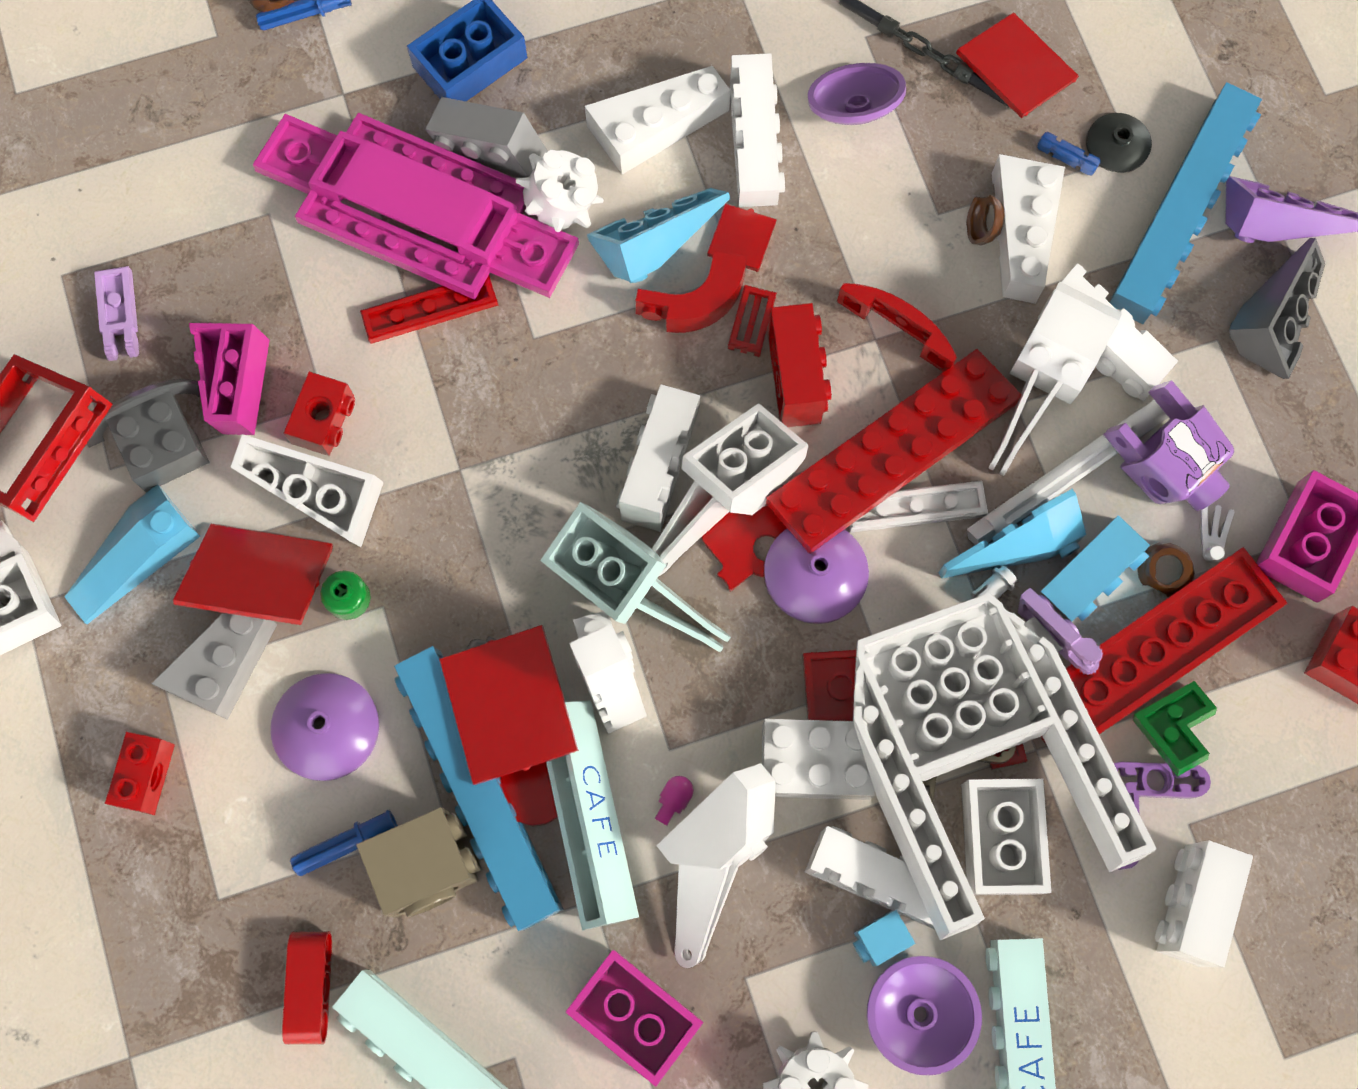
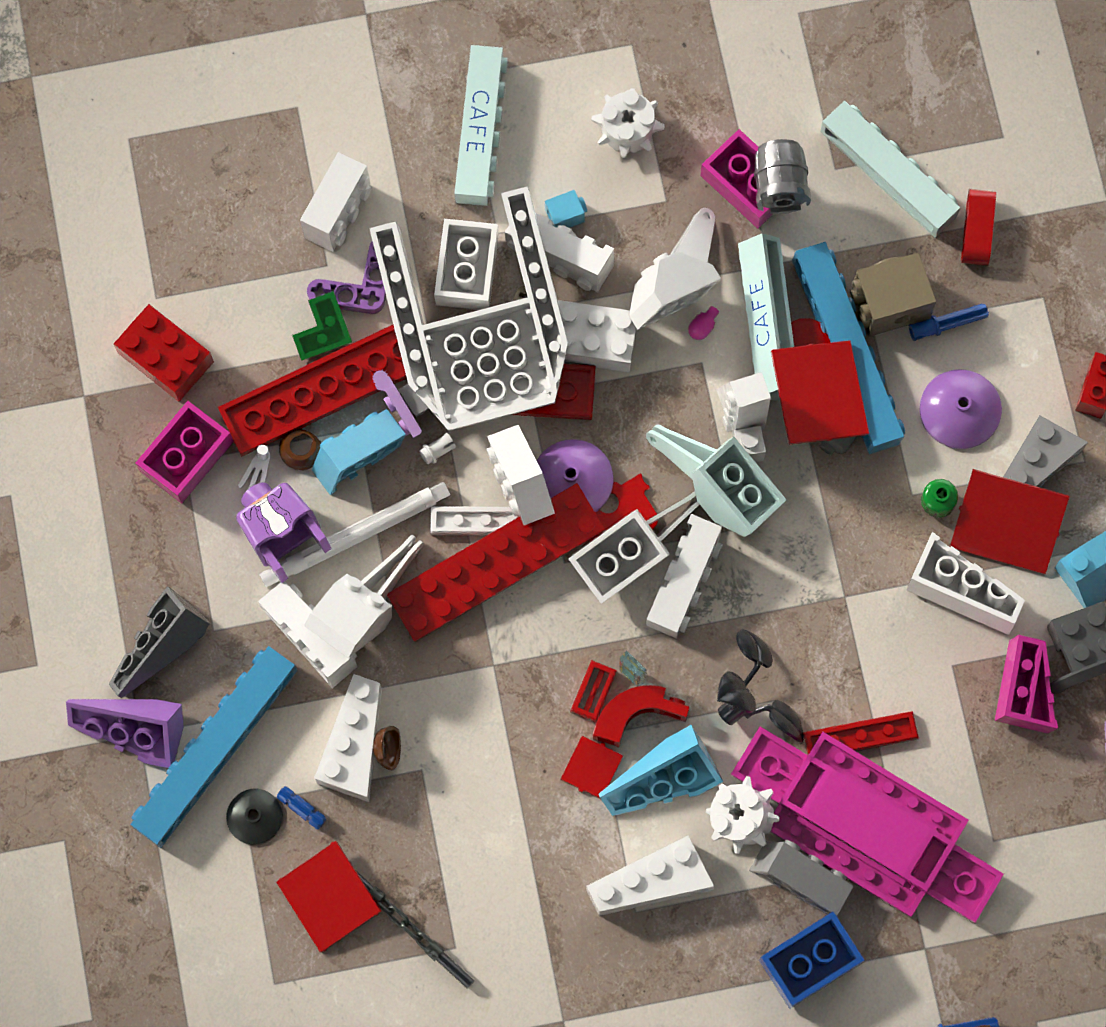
camera: 170 degrees left, 0 degrees up
(317, 395) = (965, 636): red brick -> none
(579, 288) = (740, 702): none -> black plant
(586, 1006) = (781, 176): none -> flat silver piece
(709, 334) = (632, 669): none -> clear light blue tile
(755, 130) = (569, 850): white wedge -> none
(798, 365) = (563, 634): red brick -> none
(857, 93) = (480, 891): medium lavender dish -> none
(863, 299) = (498, 692): red slope -> none
(887, 542) = (520, 475): none -> white brick
(950, 1022) = (541, 141): medium lavender dish -> none
(1044, 534) = (402, 479): medium azure wedge -> none

